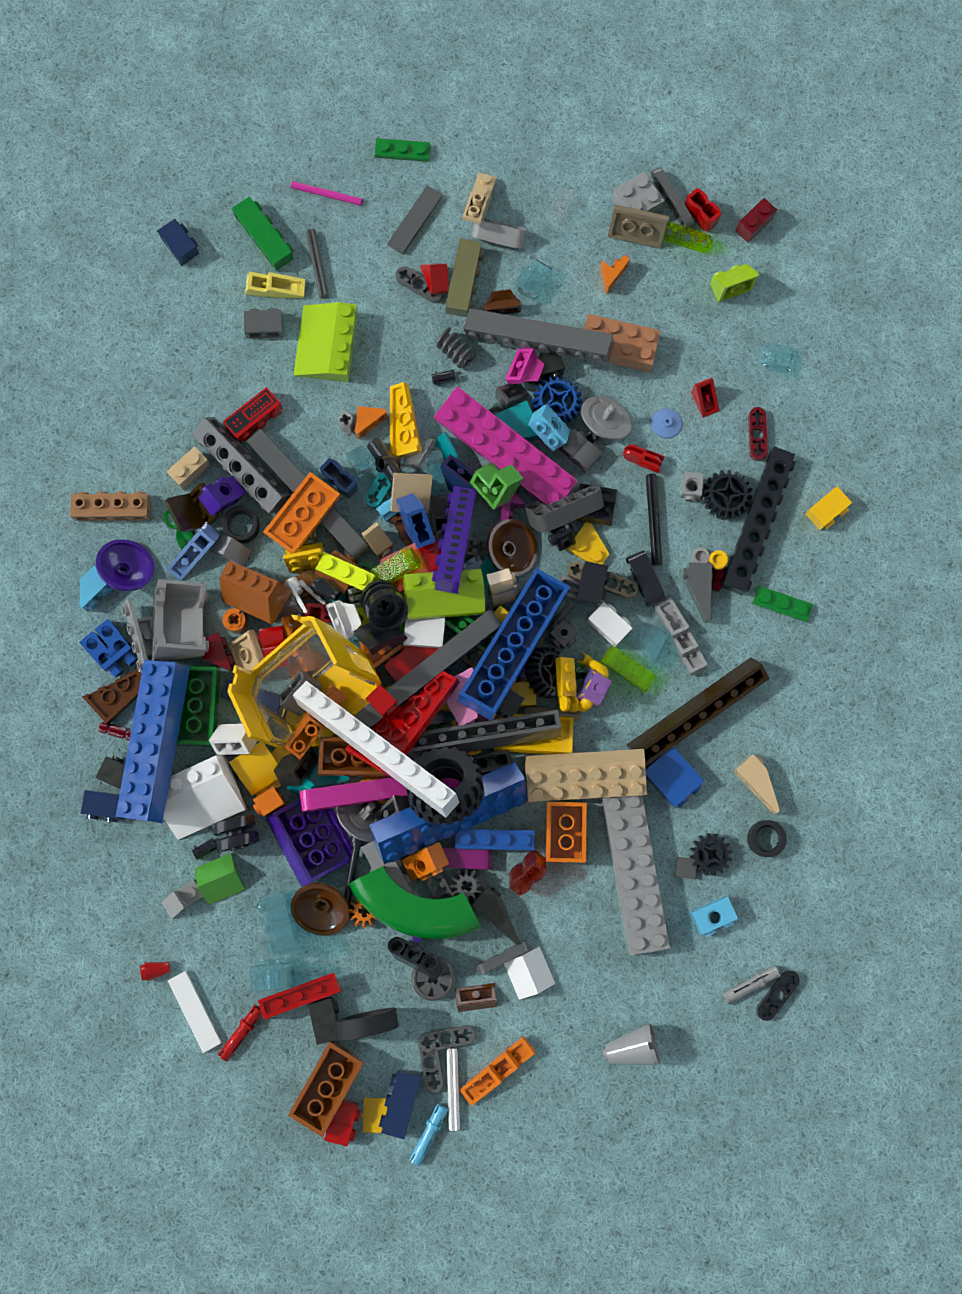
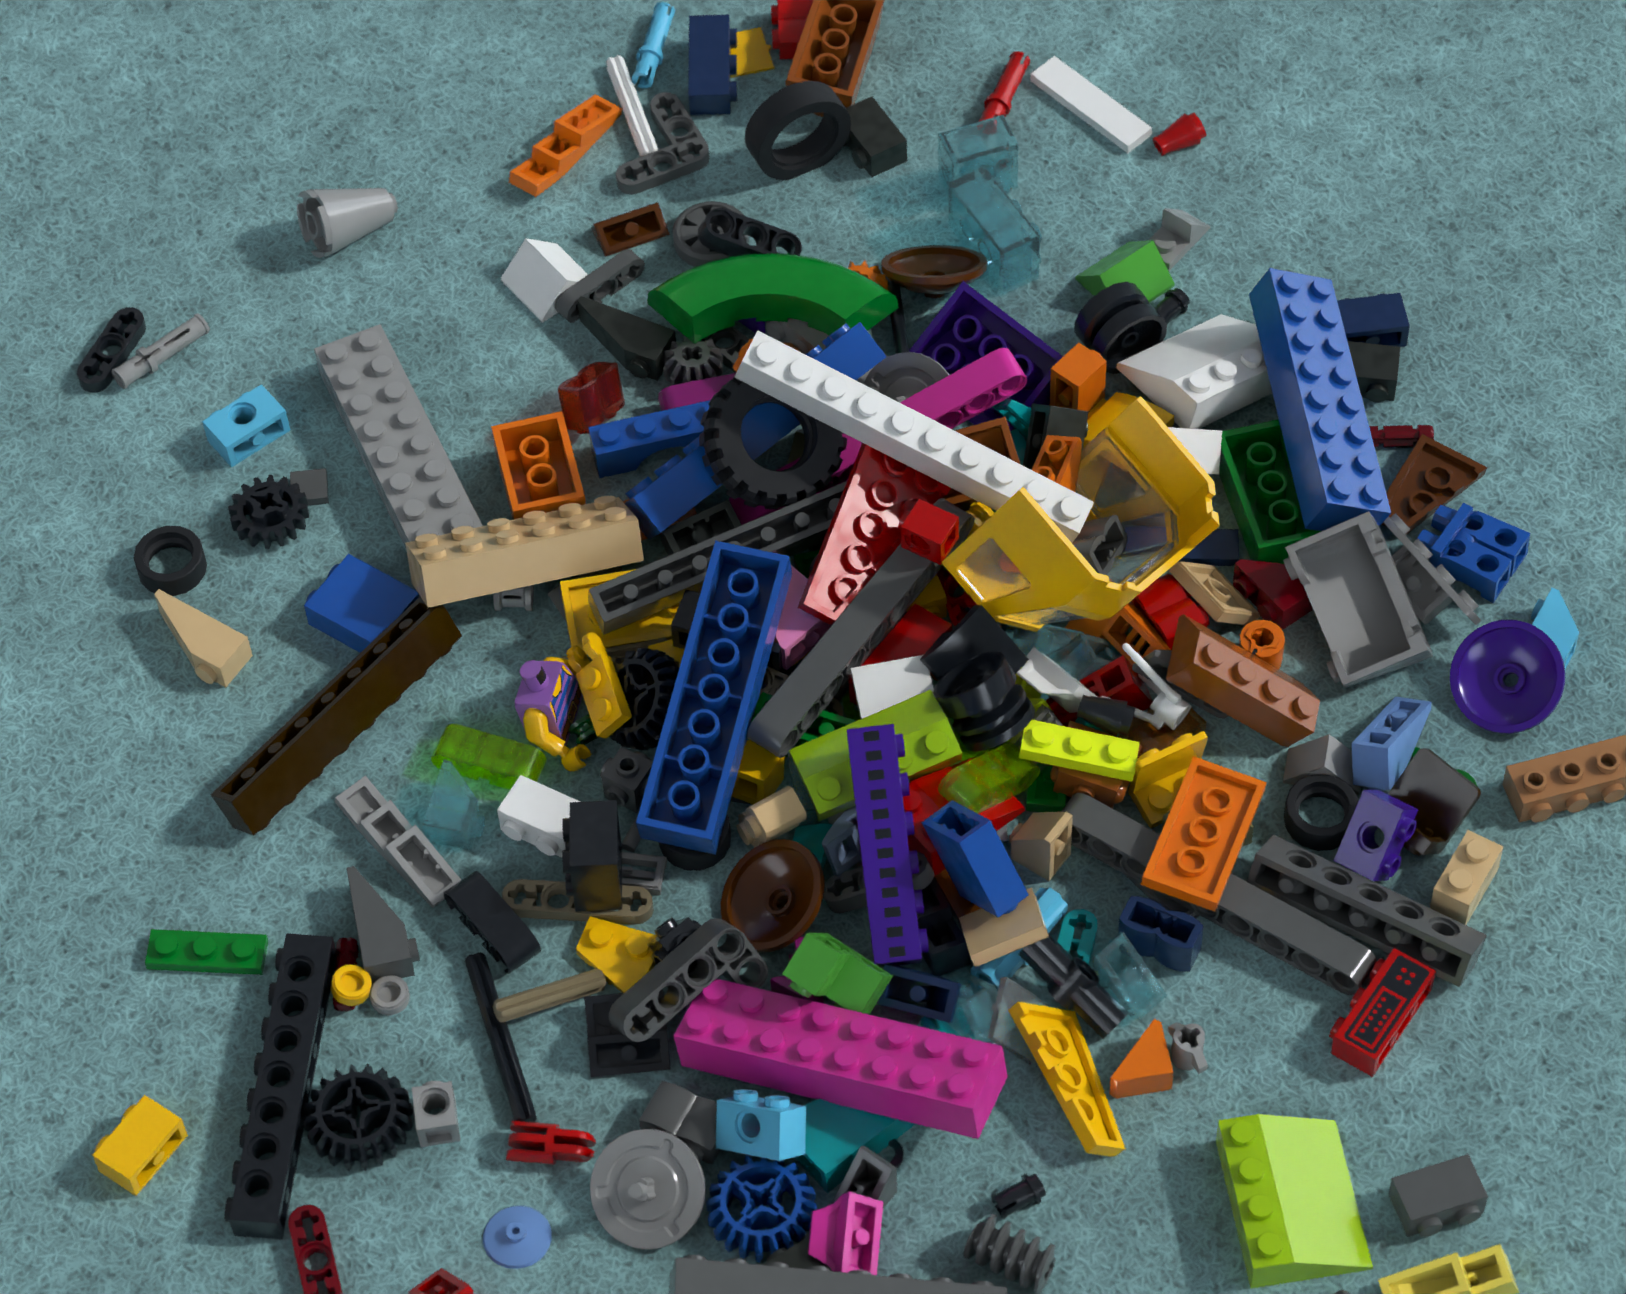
camera: 170 degrees right, 25 degrees down
(299, 995) = (911, 153): red fence -> none
(628, 530) = (549, 995): none -> dark tan axle

